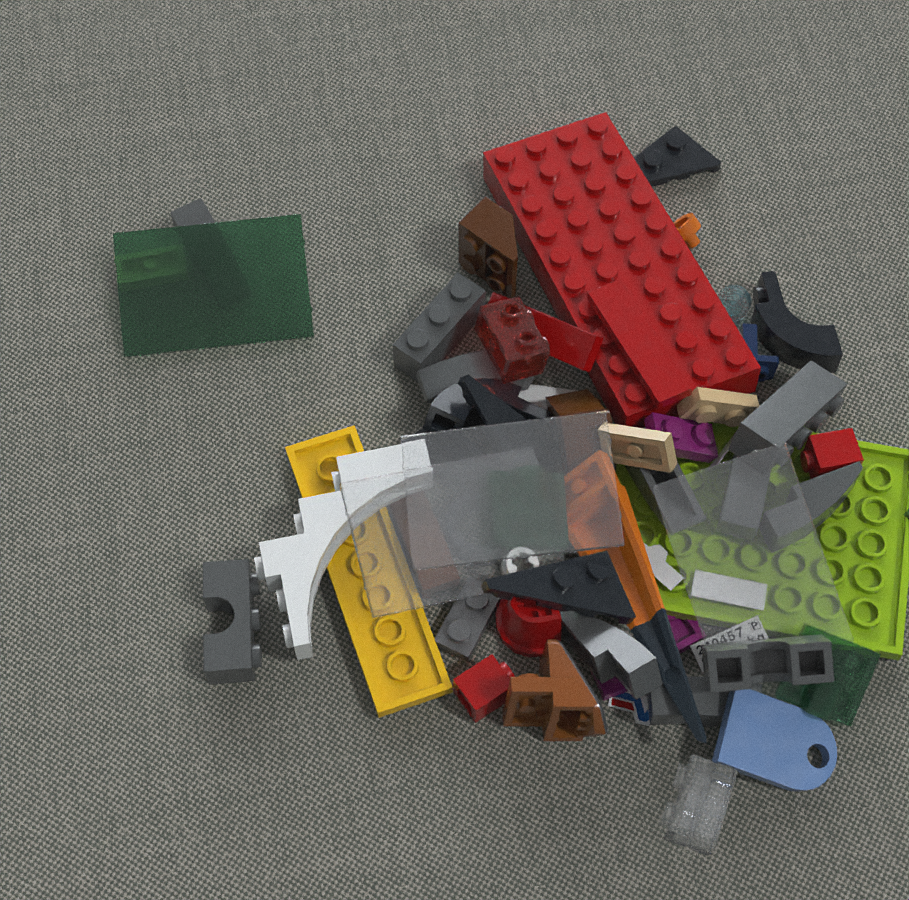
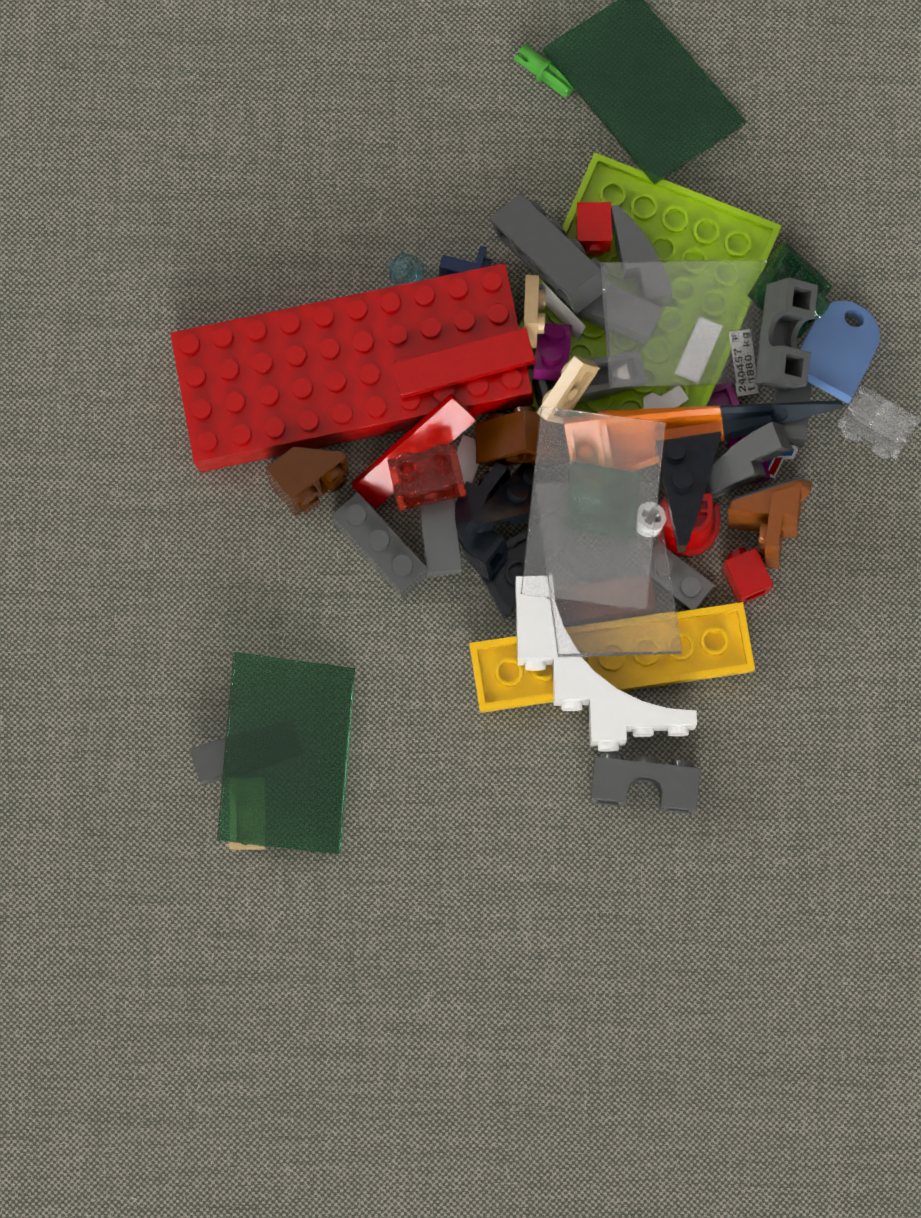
camera: 80 degrees left, 15 degrees up
(675, 158) = (220, 283): black wing -> none
(687, 227) = (312, 290): orange tile -> none
(788, 336) = (447, 234): black arch -> none

